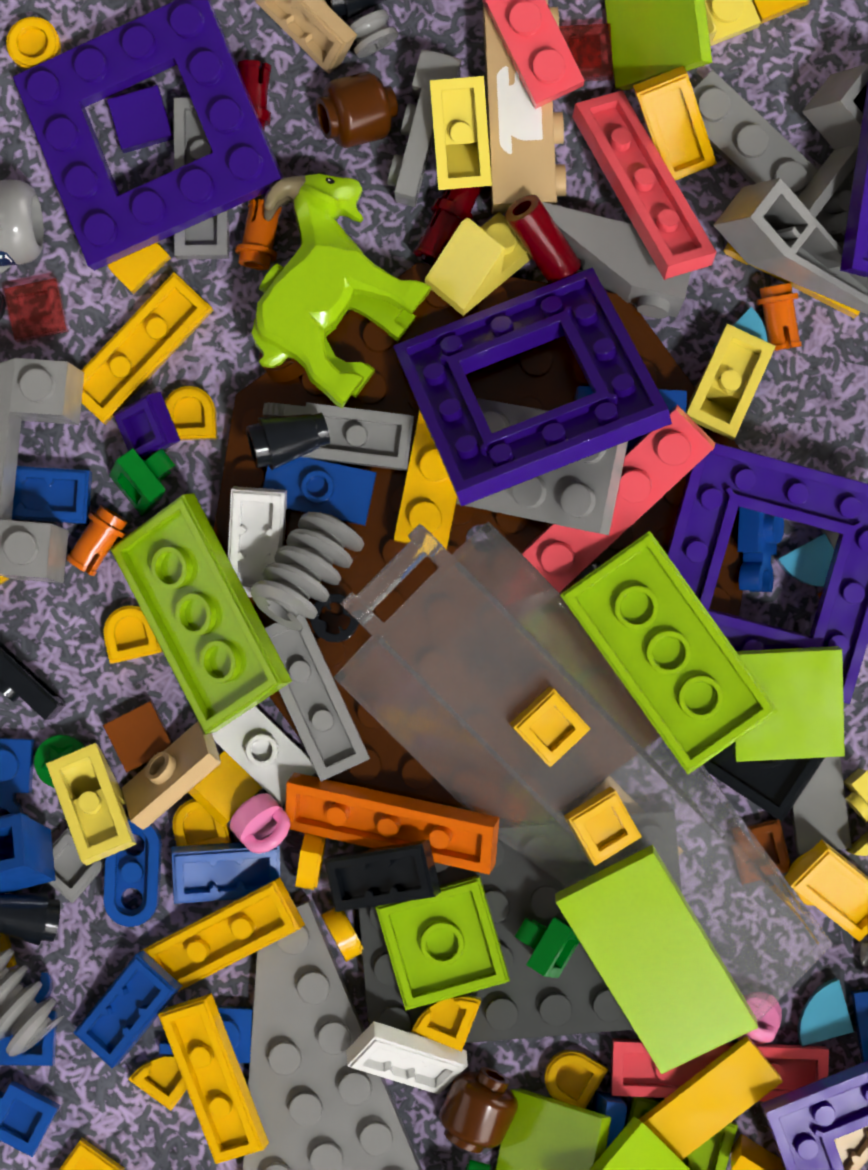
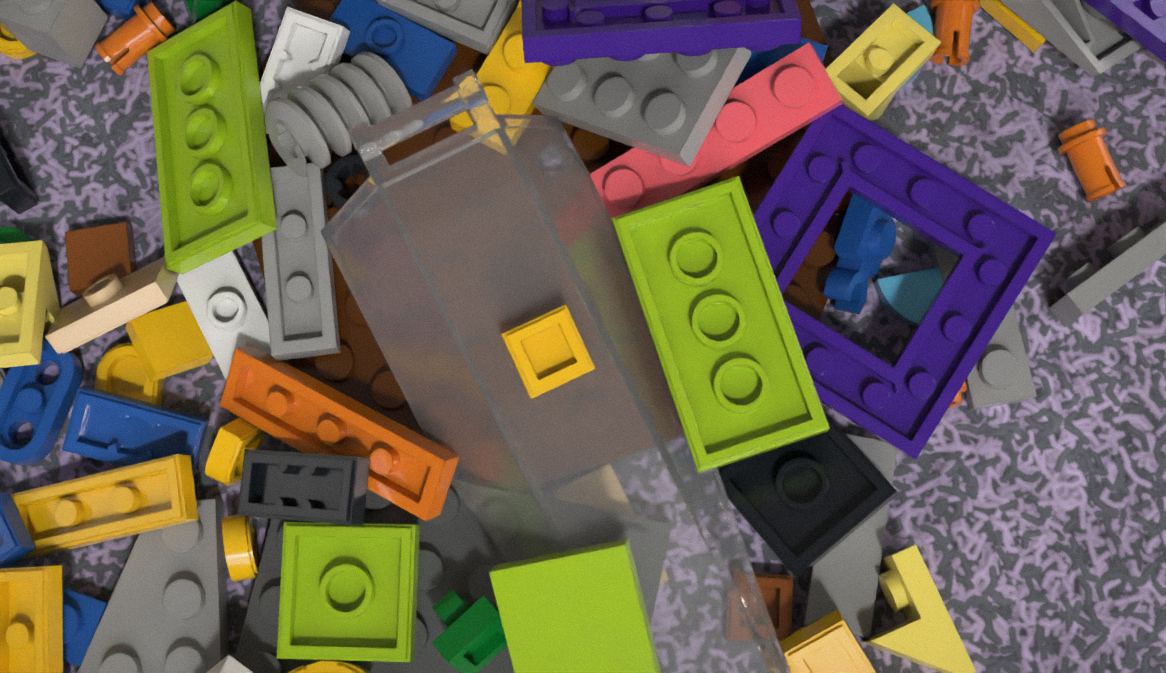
camera: 20 degrees right, 10 degrees down
(129, 635) = (130, 149): yellow tile -> none
(258, 819) = (191, 387): bright pink tile -> none
(602, 826) = (575, 496): yellow tile -> none
(809, 702) = (867, 441): lime tile -> none

